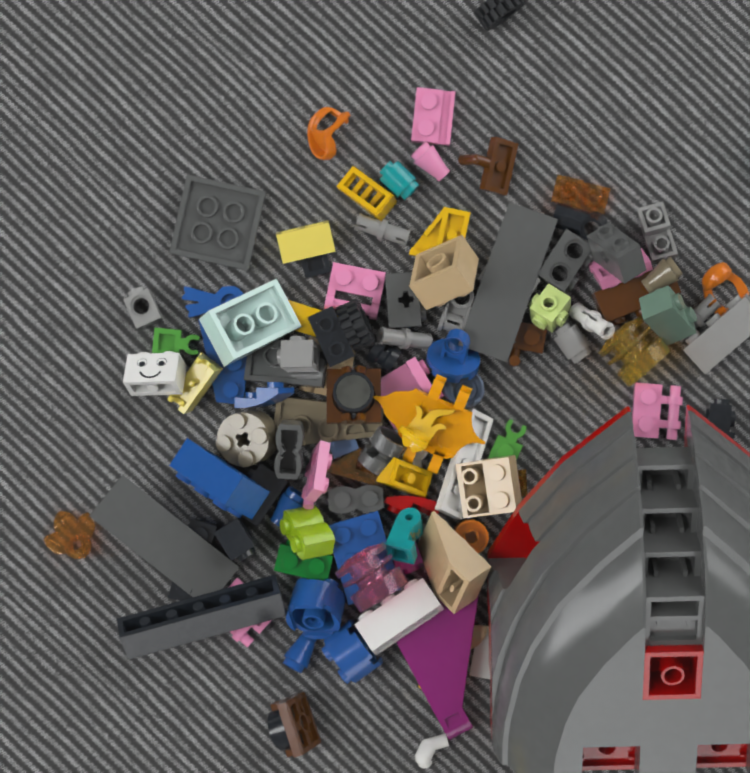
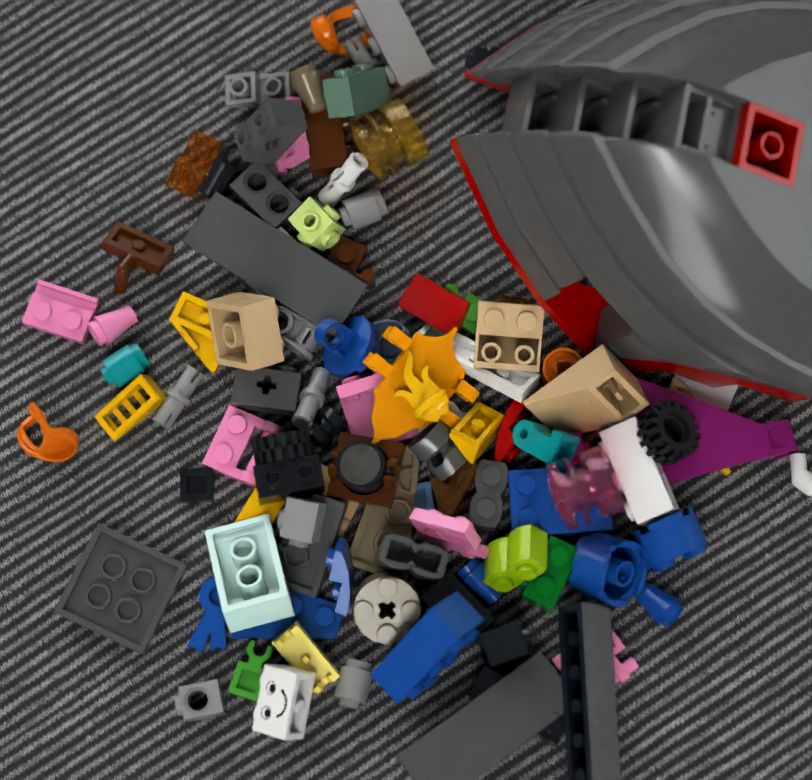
camera: 75 degrees left, 10 degrees down
(183, 425) = (353, 683): none -> light grey brick
(293, 725) = (744, 630): reddish brown piece -> none
(305, 242) = (169, 489): light yellow hinge -> none
(424, 626) = (658, 441): none -> black tyre
(503, 420) = (434, 304): none -> red slope
(647, 409) = (441, 133): bright pink plate -> none

